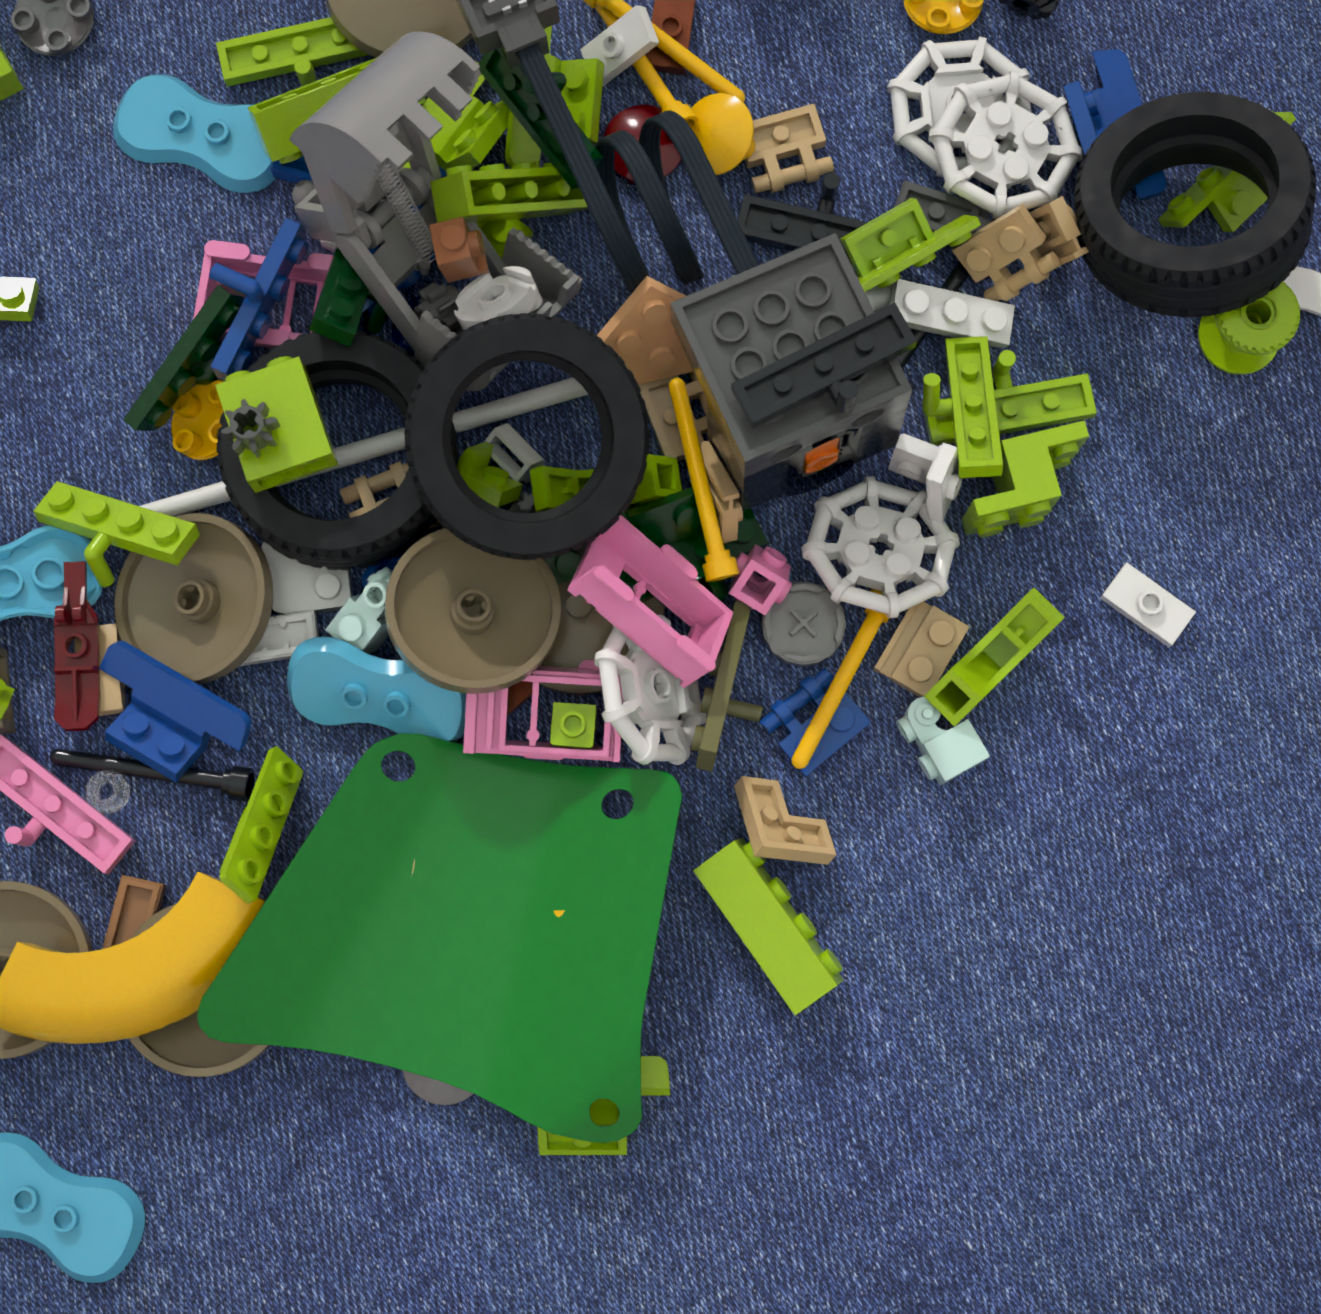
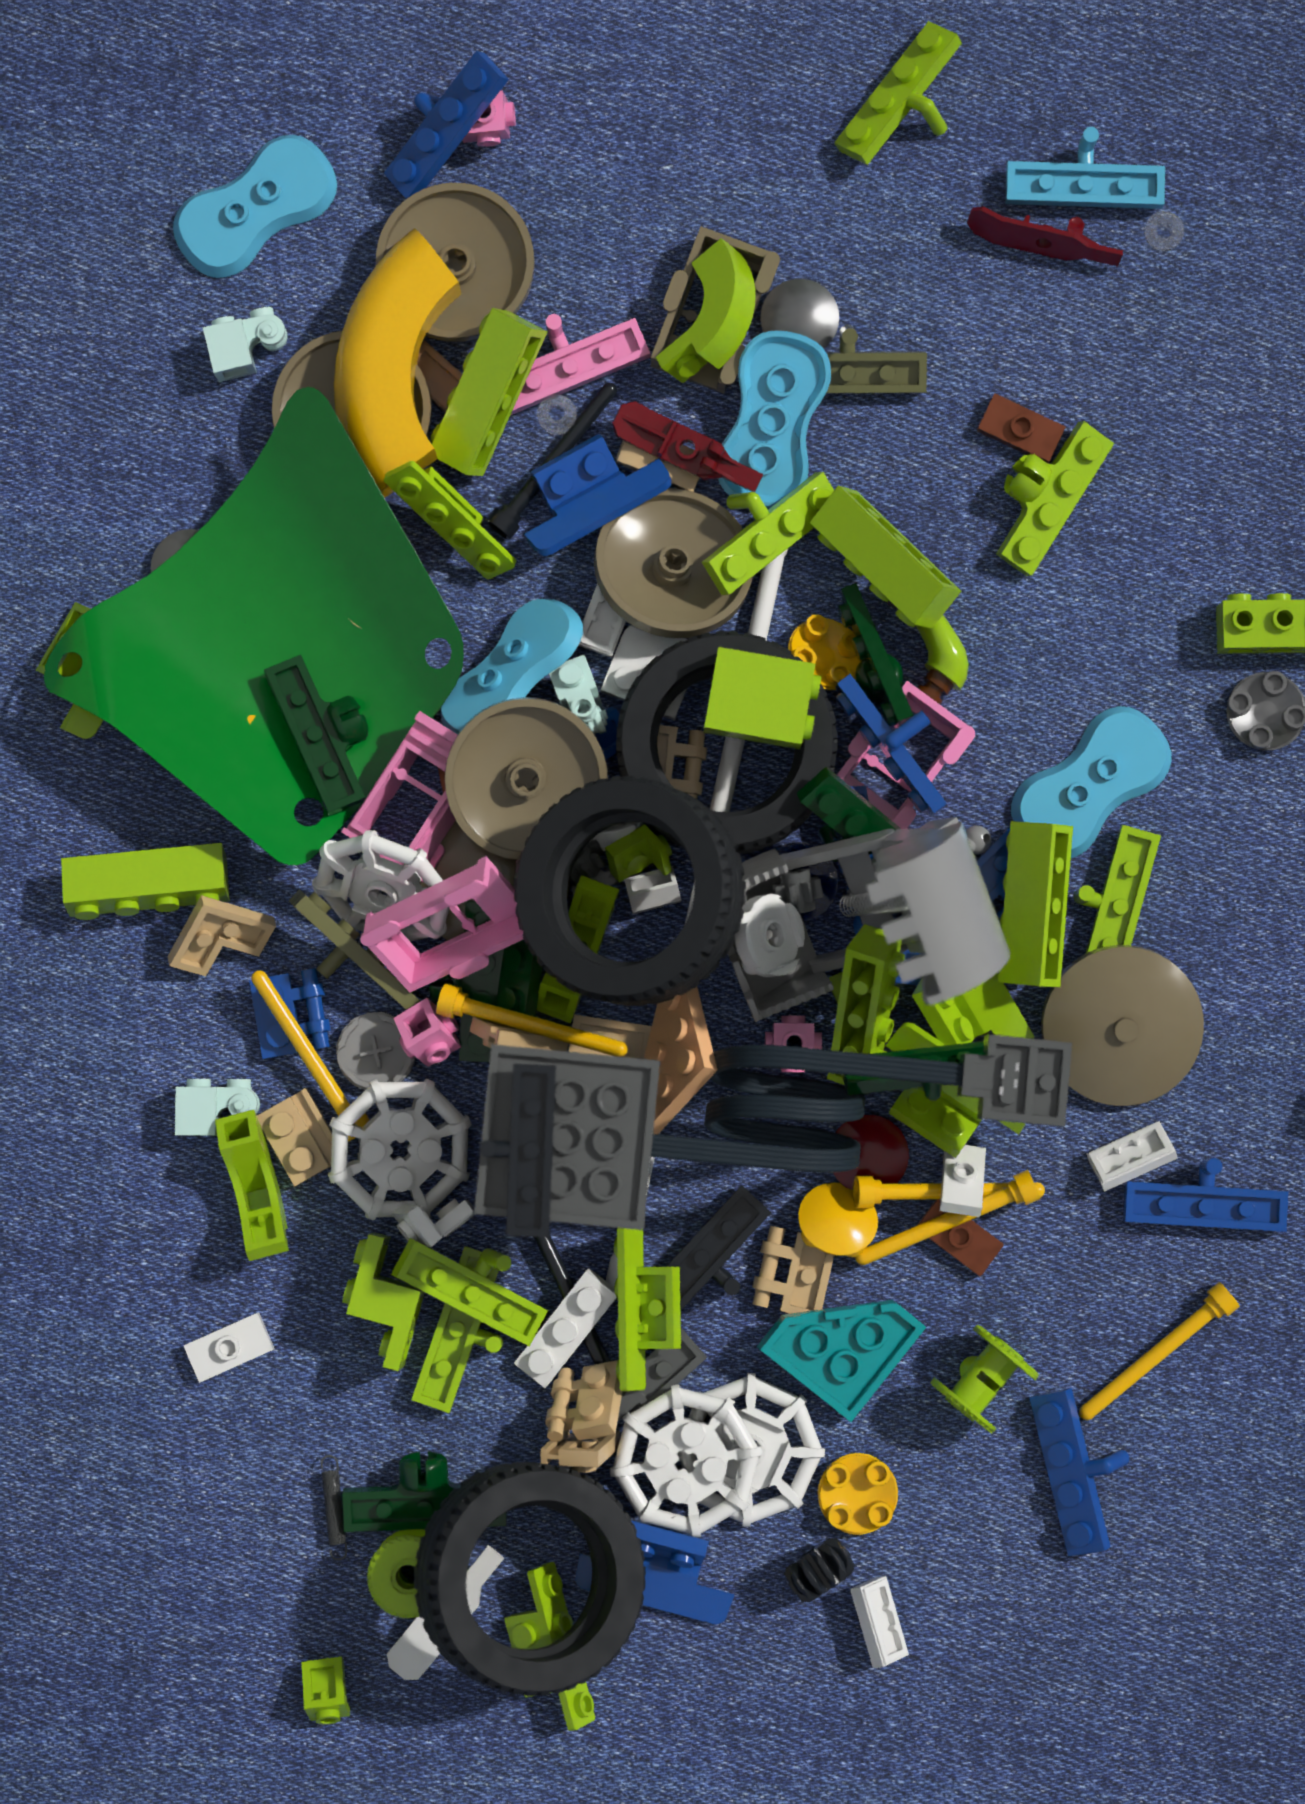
camera: 120 degrees right, 5 degrees up
(84, 402) = (884, 557): none -> lime brick
(114, 862) = (487, 391): none -> lime brick
(149, 310) = (946, 659): none -> lime piece
(197, 1147) = (232, 342): none -> light aqua brick
(250, 416) = (752, 681): dark grey gear -> none
(458, 250) = (830, 928): nougat brick -> none
(535, 838) = (320, 732): none -> dark green plate
(573, 725) = (393, 812): lime bracket -> none
(591, 264) = (794, 1026): none -> bright pink brick
(828, 69) = (843, 1349): none -> teal plate
(1180, 359) = (405, 1504): none -> dark green plate
(1230, 432) = (333, 1507): none -> dark grey piece

